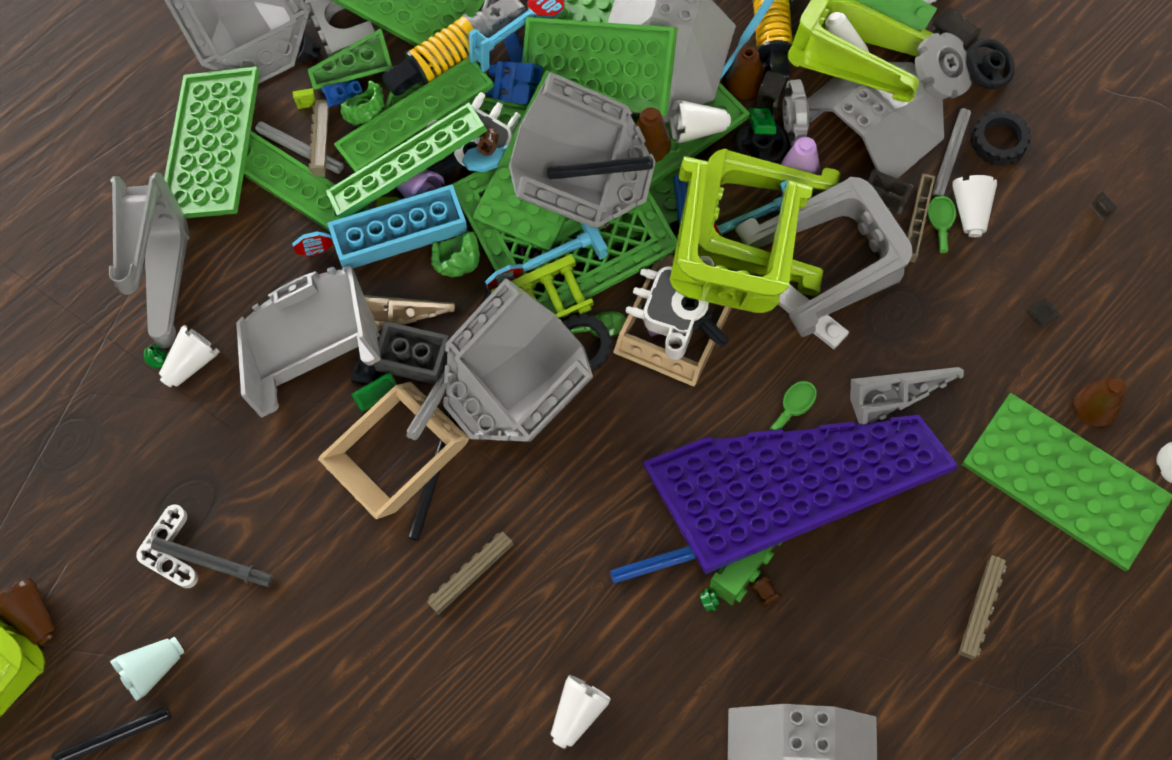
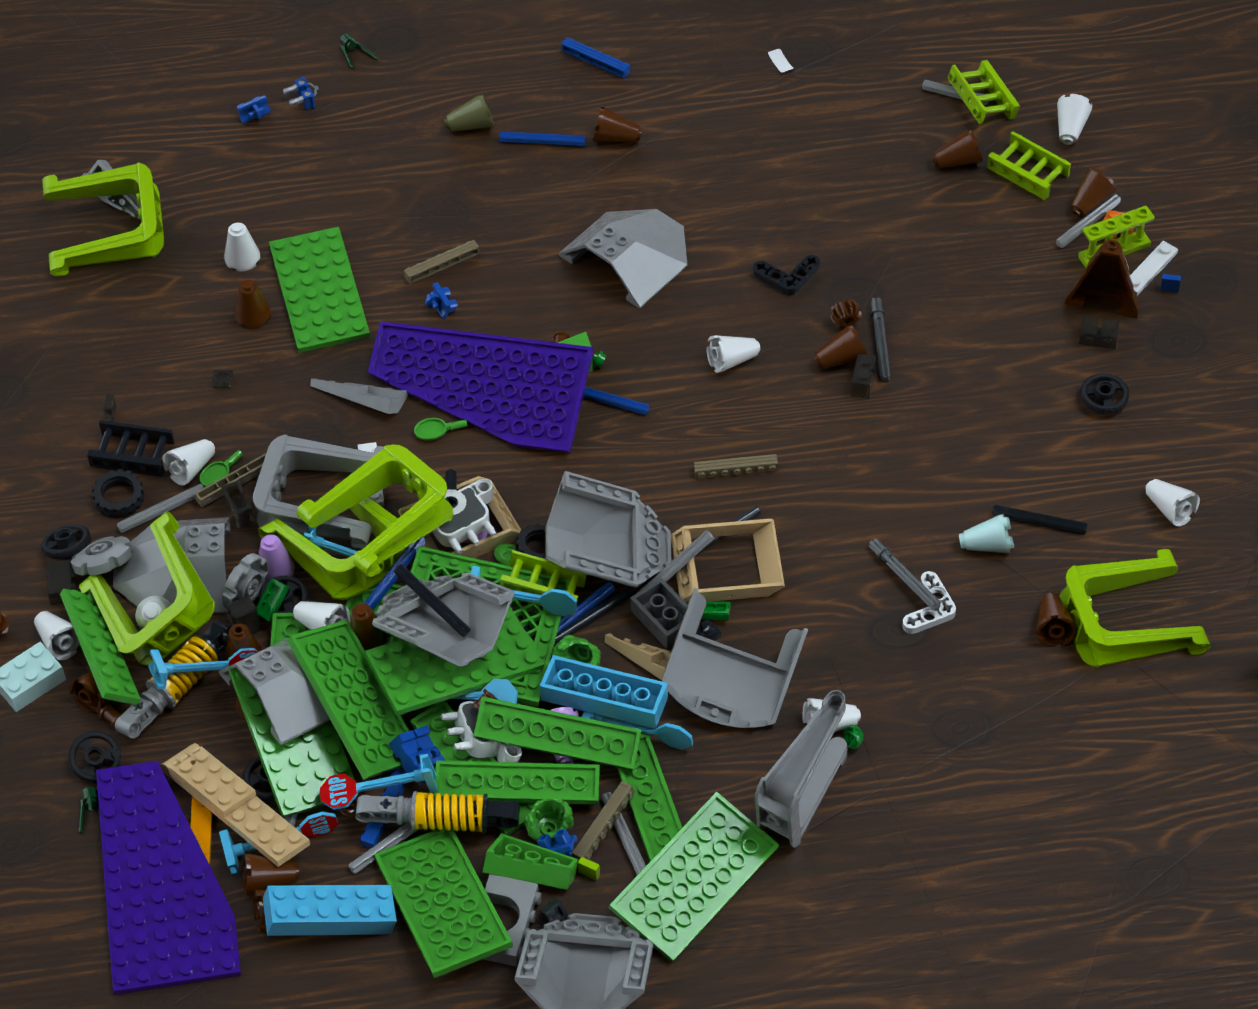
camera: 145 degrees left, 15 degrees down
(942, 558) = (439, 300): none -> blue hips
(1037, 163) = (133, 463): none -> black fence

